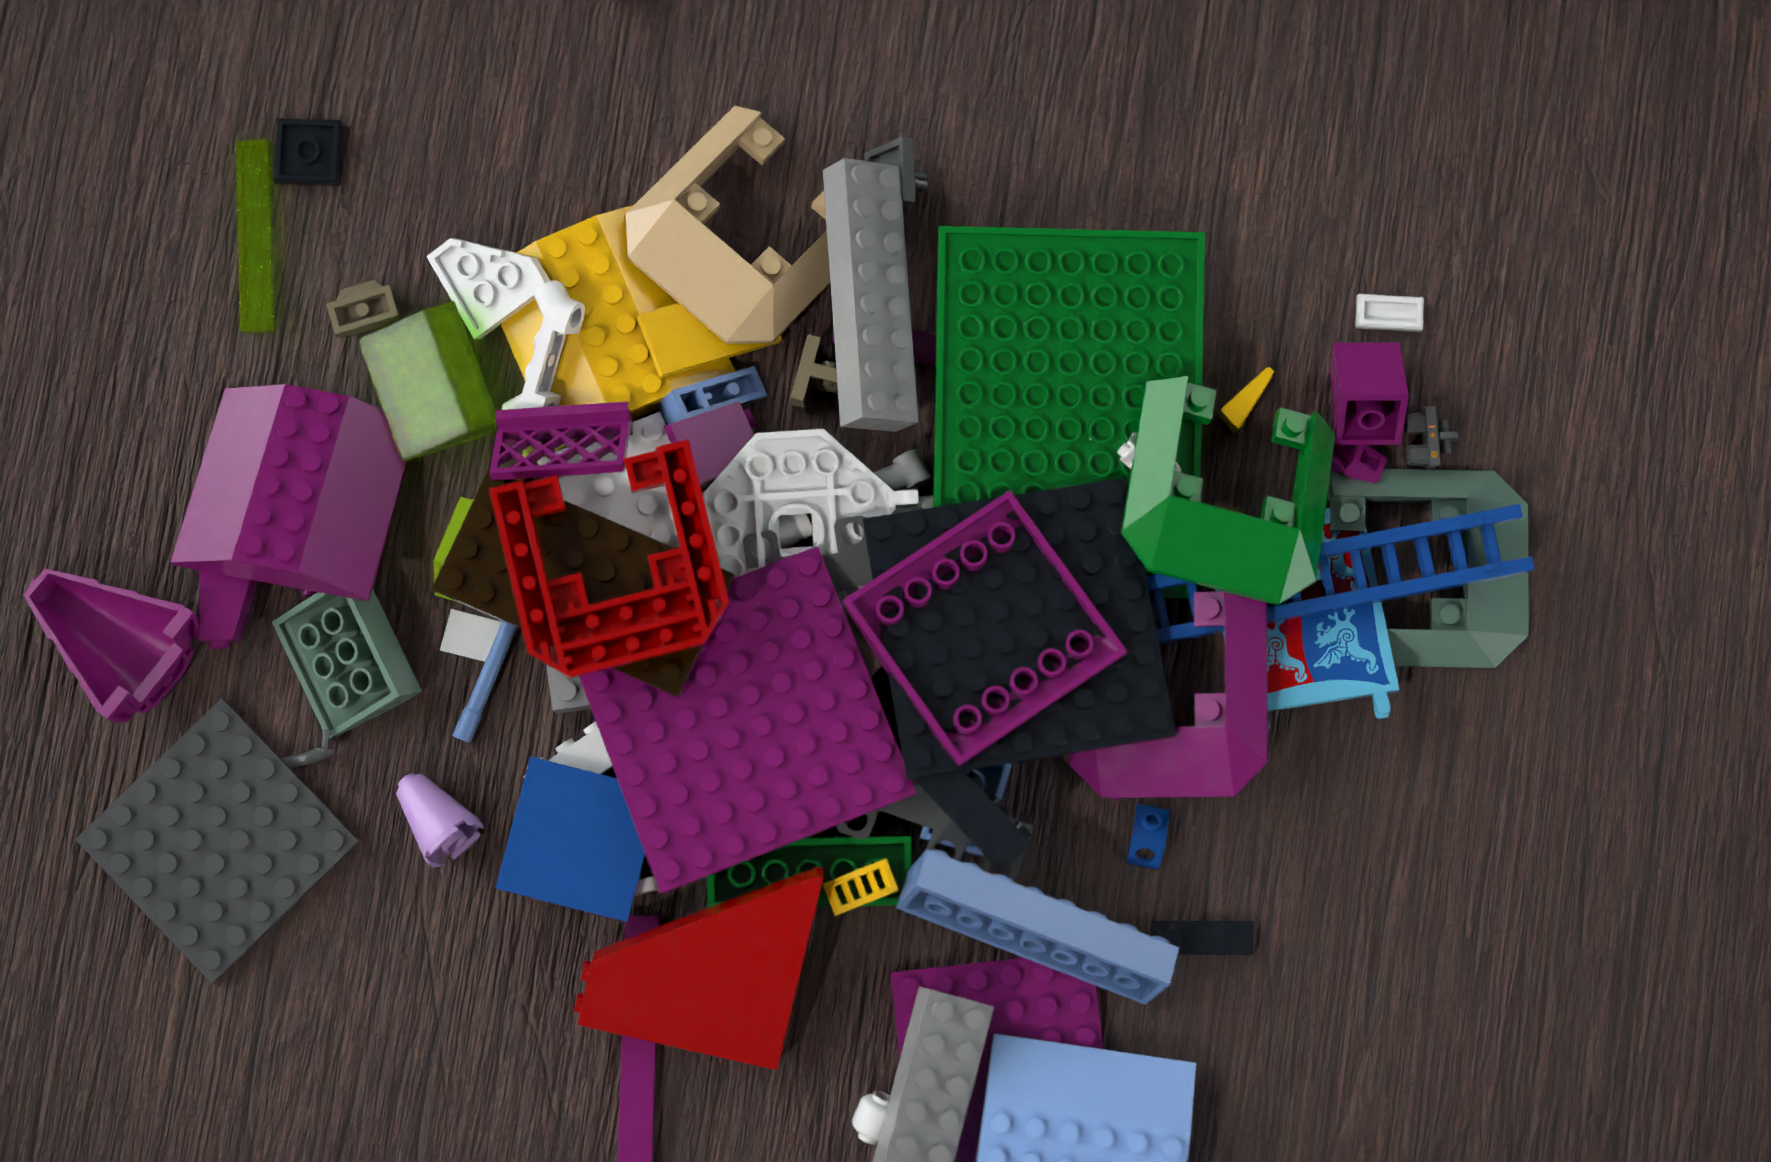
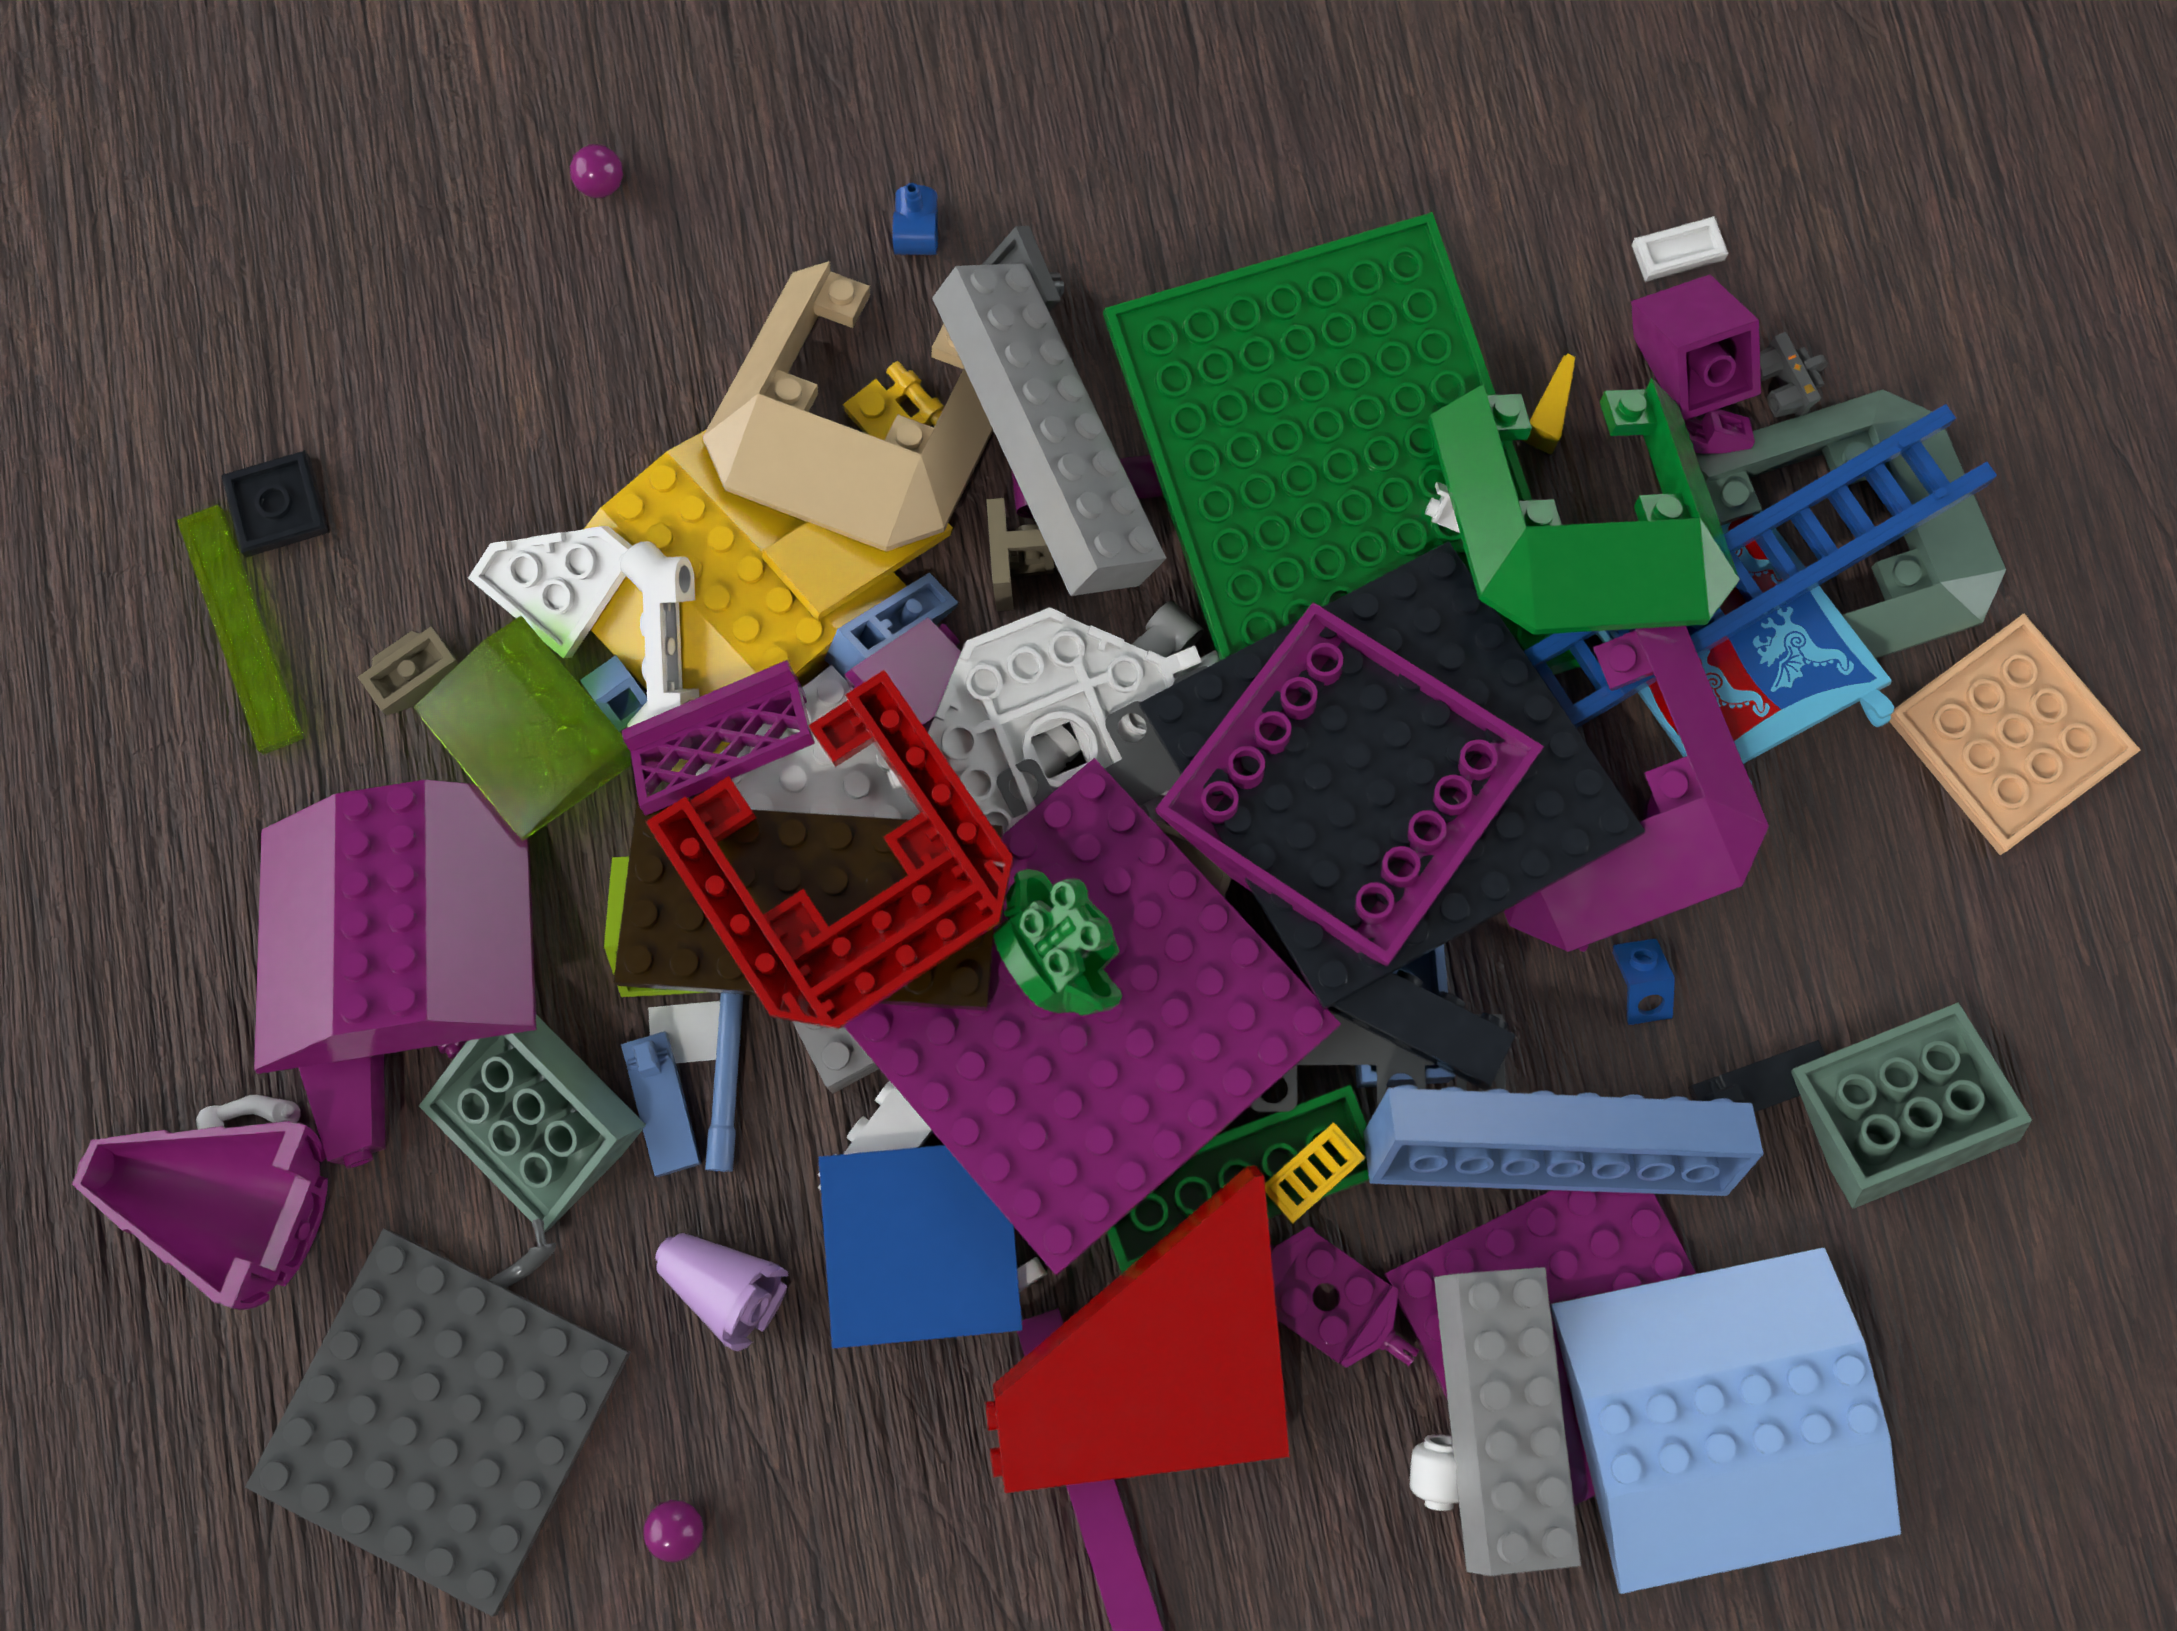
camera: 20 degrees left, 5 degrees down
(173, 590) = (269, 1108): none -> white piece
(349, 970) = (673, 1531): none -> magenta piece
(437, 679) = (661, 1104): none -> medium blue hinge
(502, 376) = (615, 692): none -> brick
(740, 672) = (1047, 941): none -> green piece
(759, 233) = (877, 408): none -> yellow plate
(836, 99) = (915, 221): none -> blue piece
(864, 994) = (1364, 1307): none -> magenta plate
(1295, 987) = (1909, 1105): none -> sand green slope
(1482, 755) = (2012, 734): none -> light nougat tile

